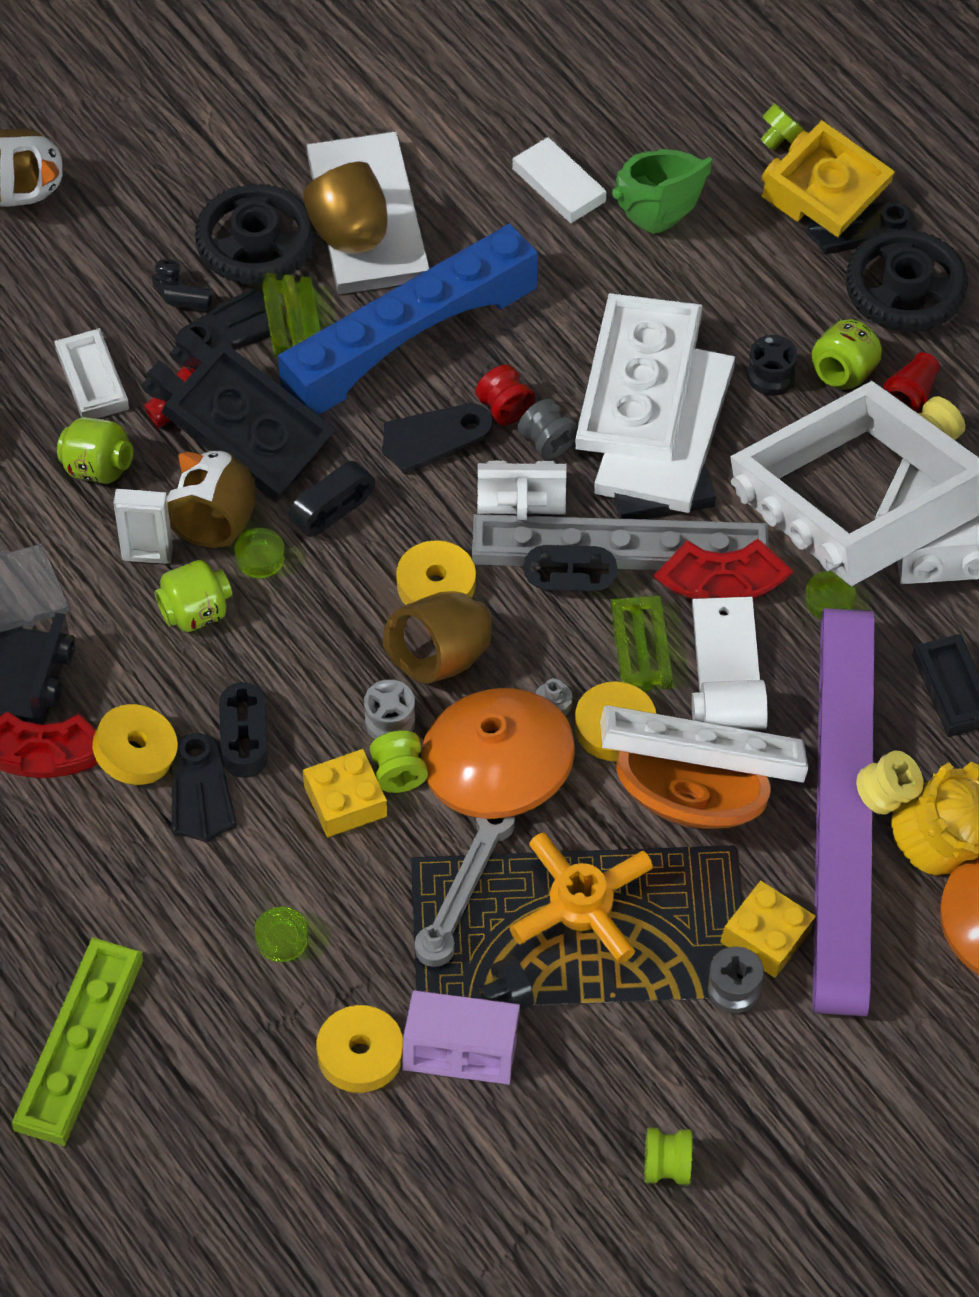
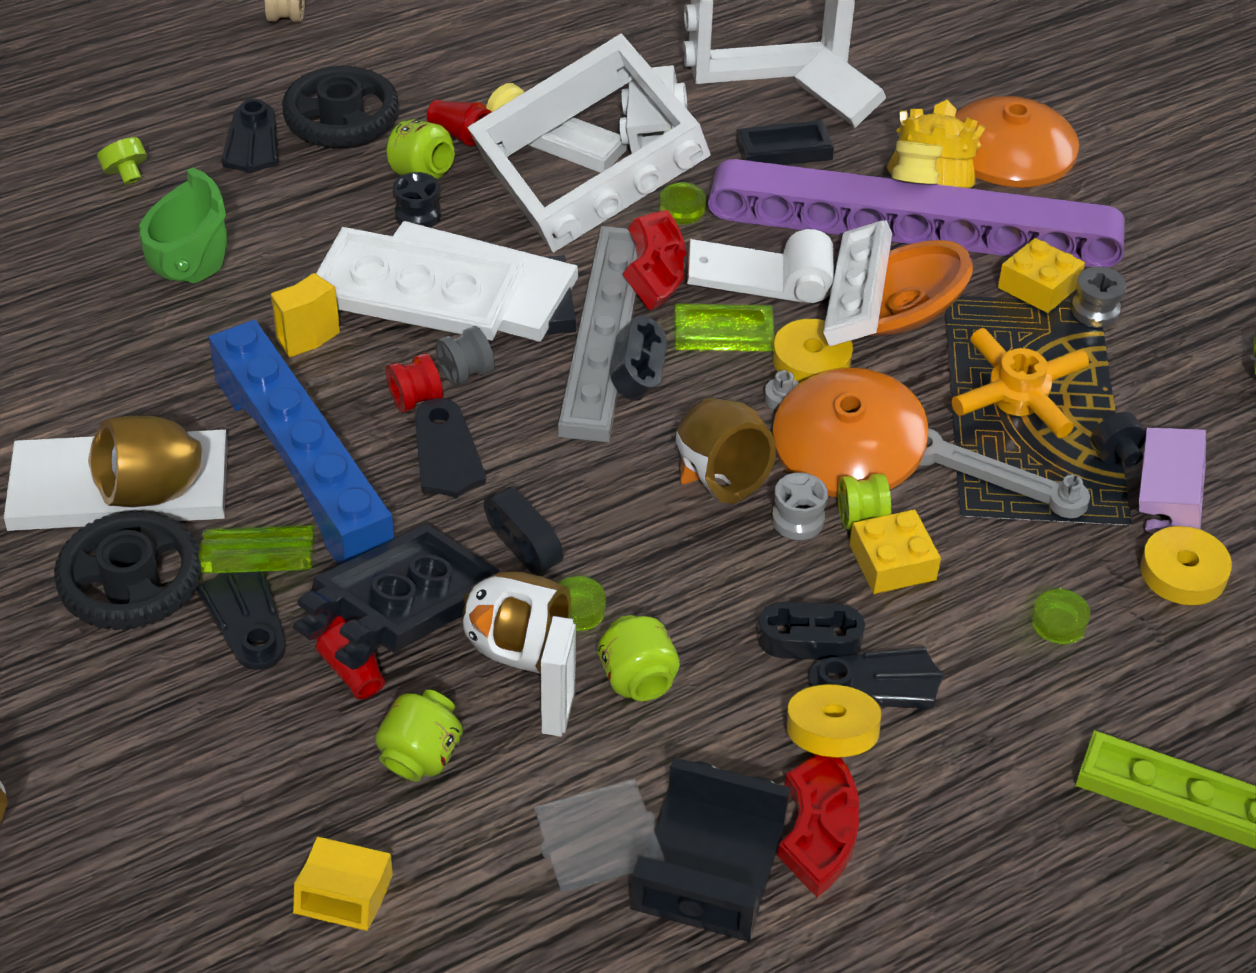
camera: 85 degrees left, 10 degrees down
(91, 374) = (287, 748): white tile -> none
(175, 291) = (169, 662): black arm -> none
(431, 560) = (634, 482): yellow piece -> none
(521, 488) = (538, 381): white hips -> none
(559, 180) = (126, 325): white tile -> none
(576, 297) = (305, 315): none -> yellow piece
(825, 179) = (205, 134): yellow plate -> none

